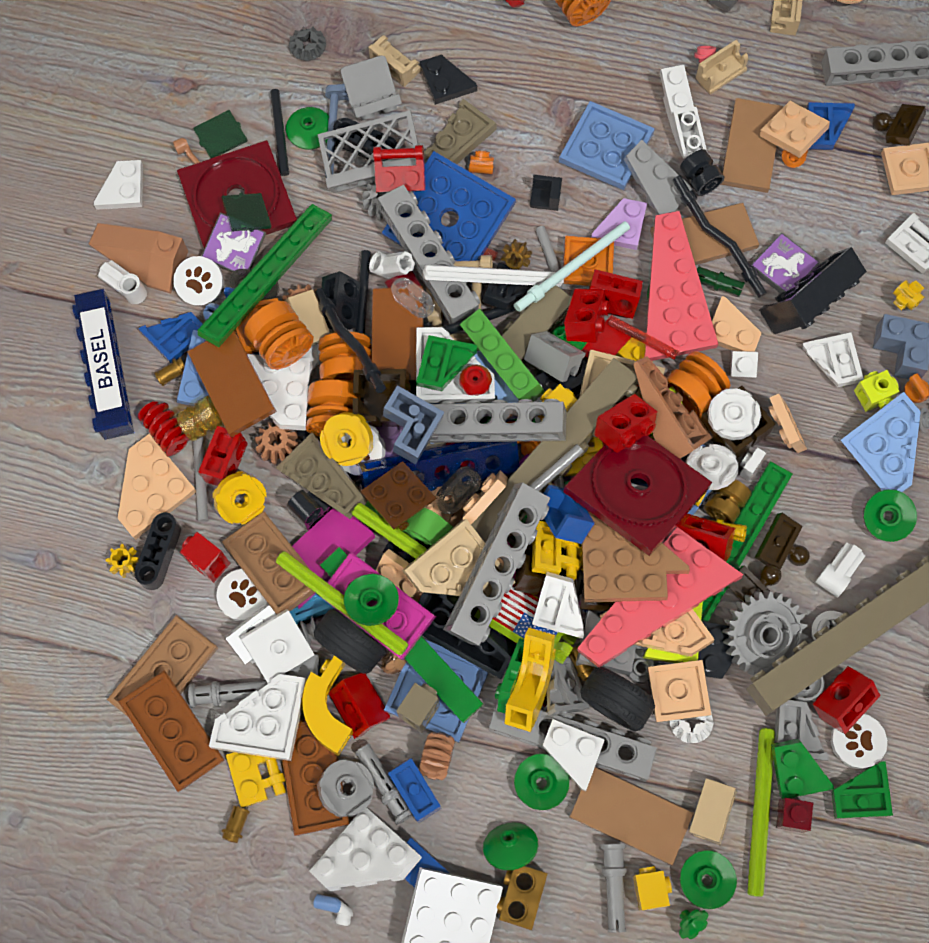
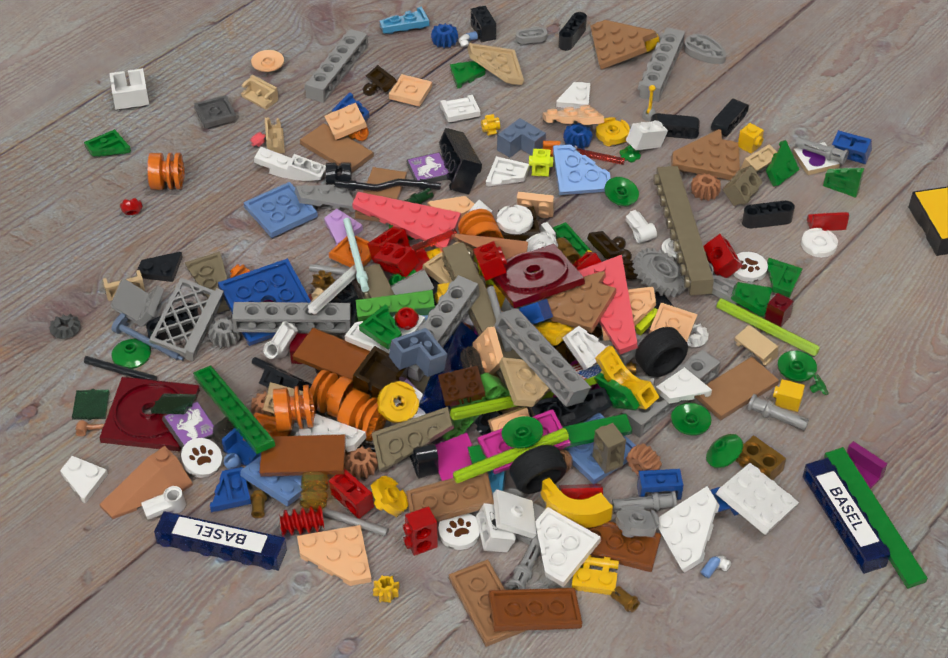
camera: 65 degrees left, 25 degrees down
(148, 558) = (394, 564): black beam -> none
(370, 369) = (363, 361): black bar -> none
(395, 176) = (222, 307): plate -> none
(409, 302) = (318, 333): clear beam -> none
(546, 192) = (289, 248): black panel -> none

